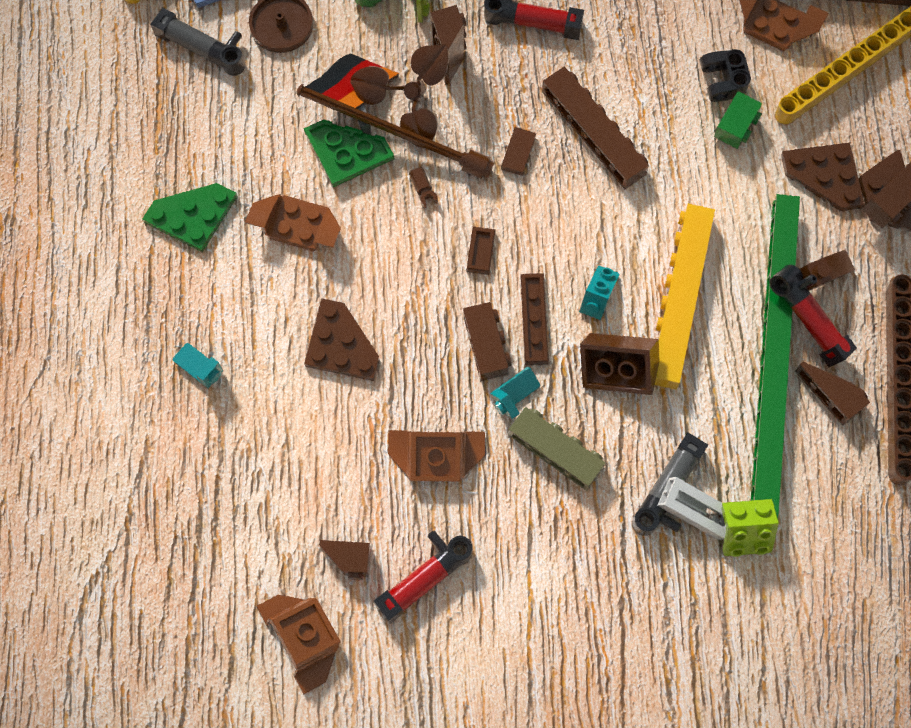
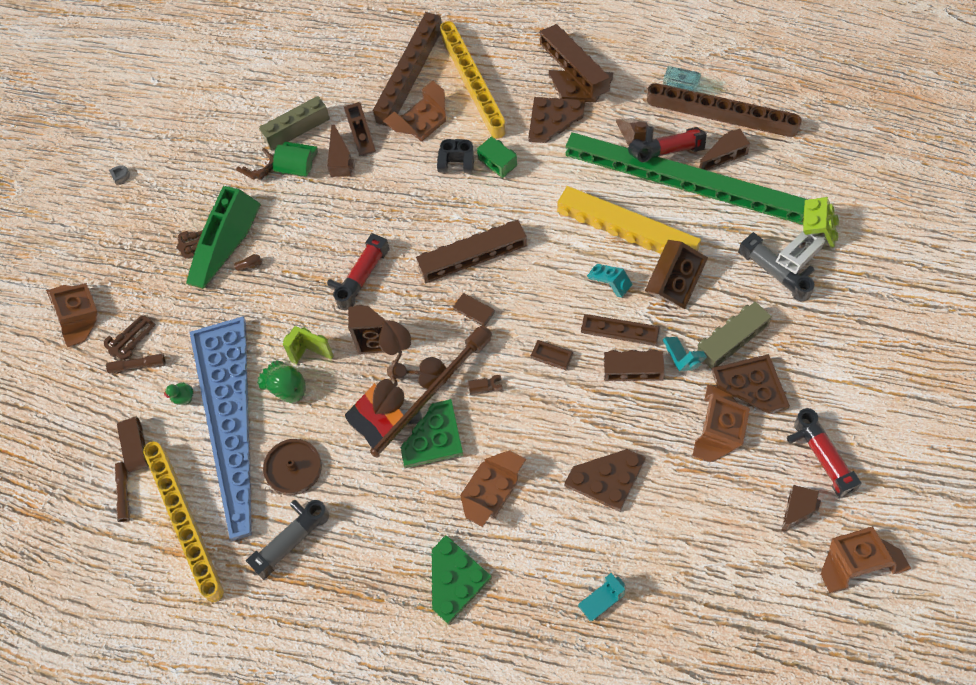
camera: 70 degrees left, 10 degrees down
(497, 482) = (753, 382): none -> reddish brown plate

